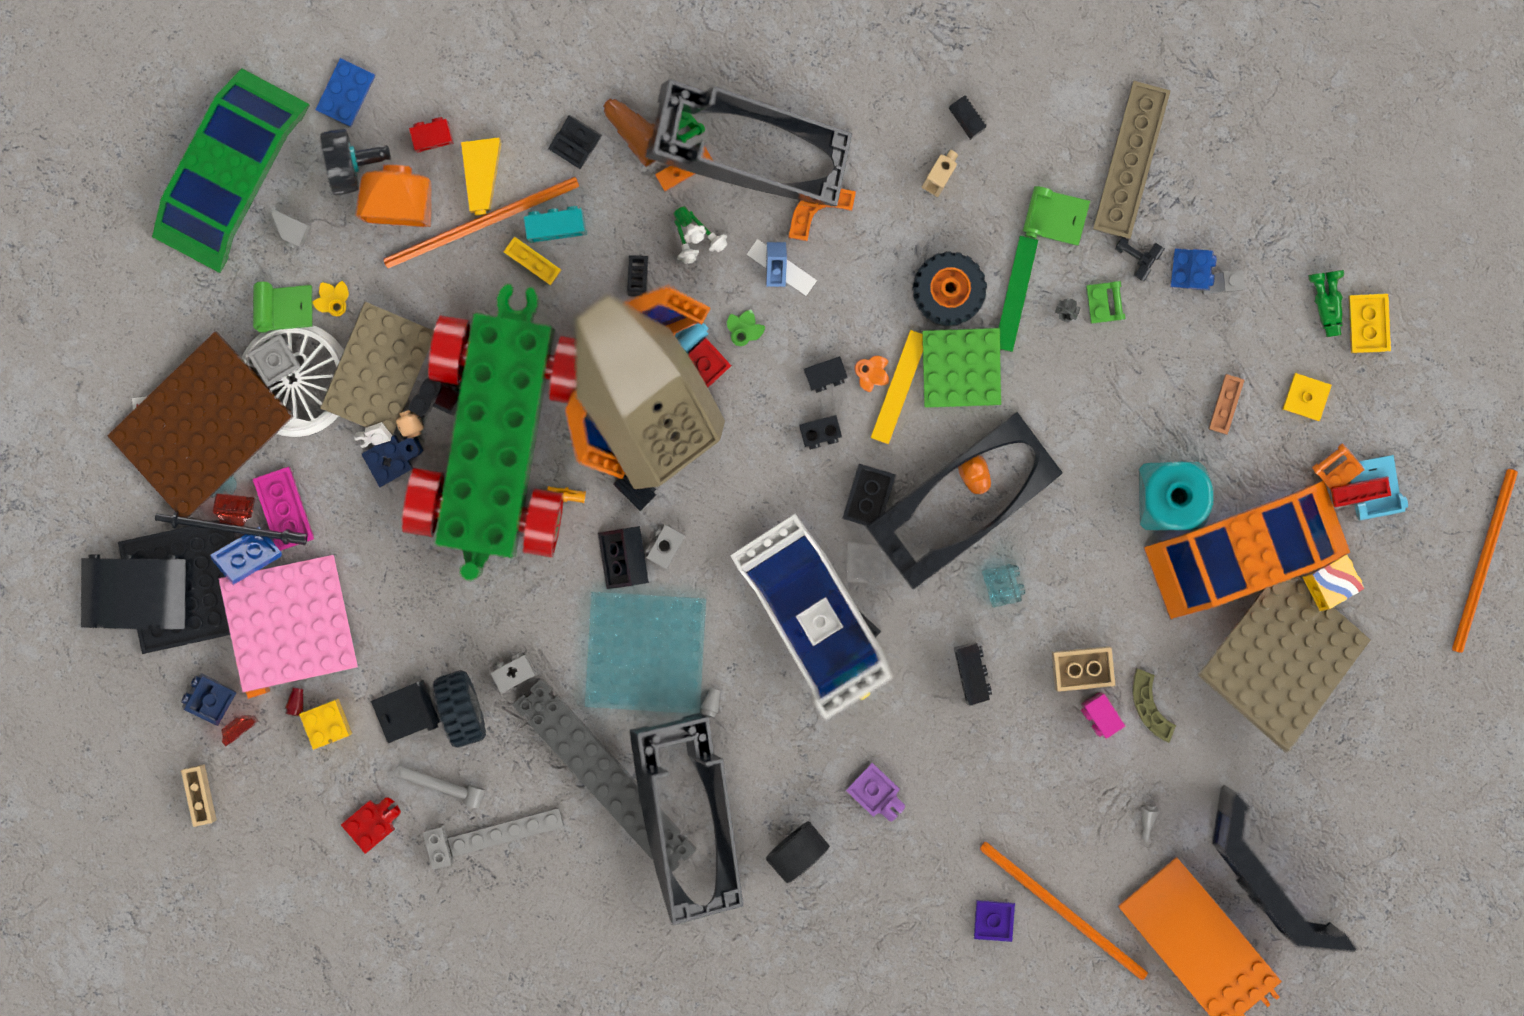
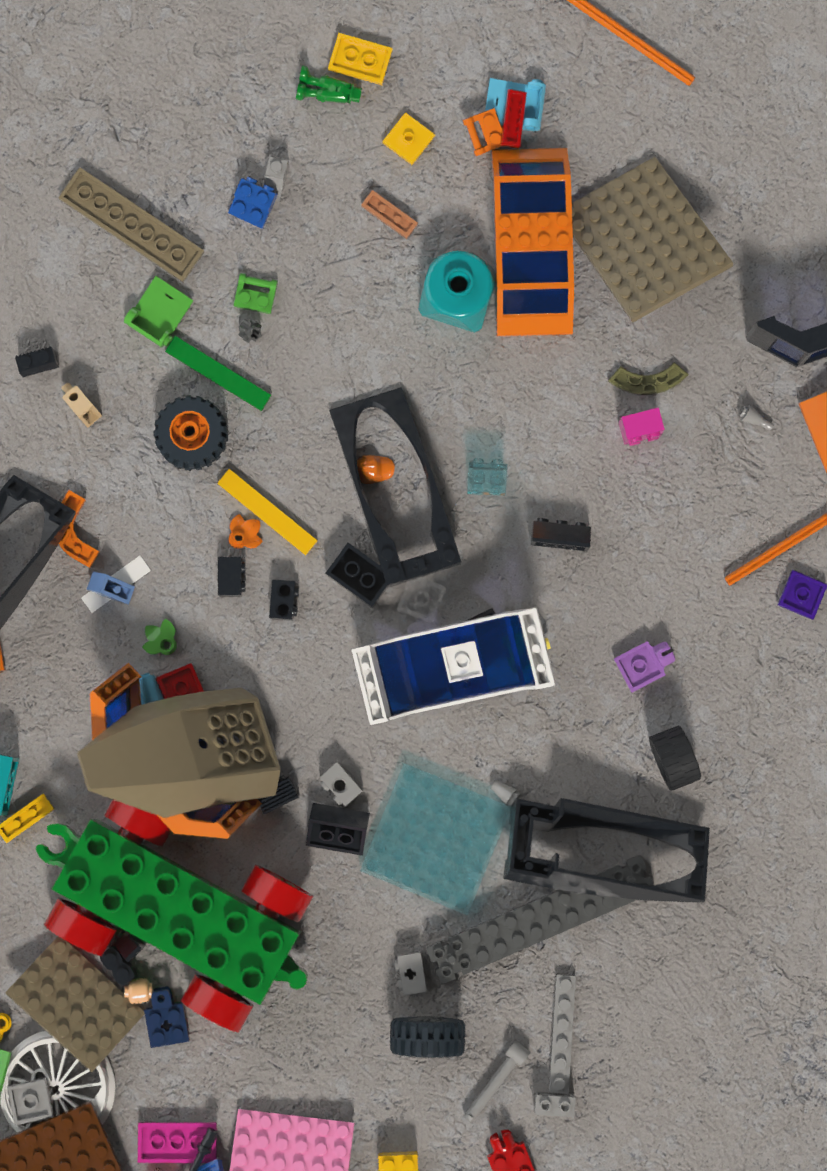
camera: 70 degrees left, 5 degrees down
(373, 434) = (136, 1028): white plate -> none
(406, 711) = (413, 1090): black door -> none
(570, 495) = (260, 858): light orange pin -> none
(636, 292) = (82, 731): black slope -> none
(695, 235) = (55, 654): white plant -> none
(961, 367) = (269, 447): bright green plate -> none
(1083, 668) = (591, 429): tan brick -> none
(1145, 259) = (228, 243): black bar -> none
(1333, 583) = (590, 171): panel -> none

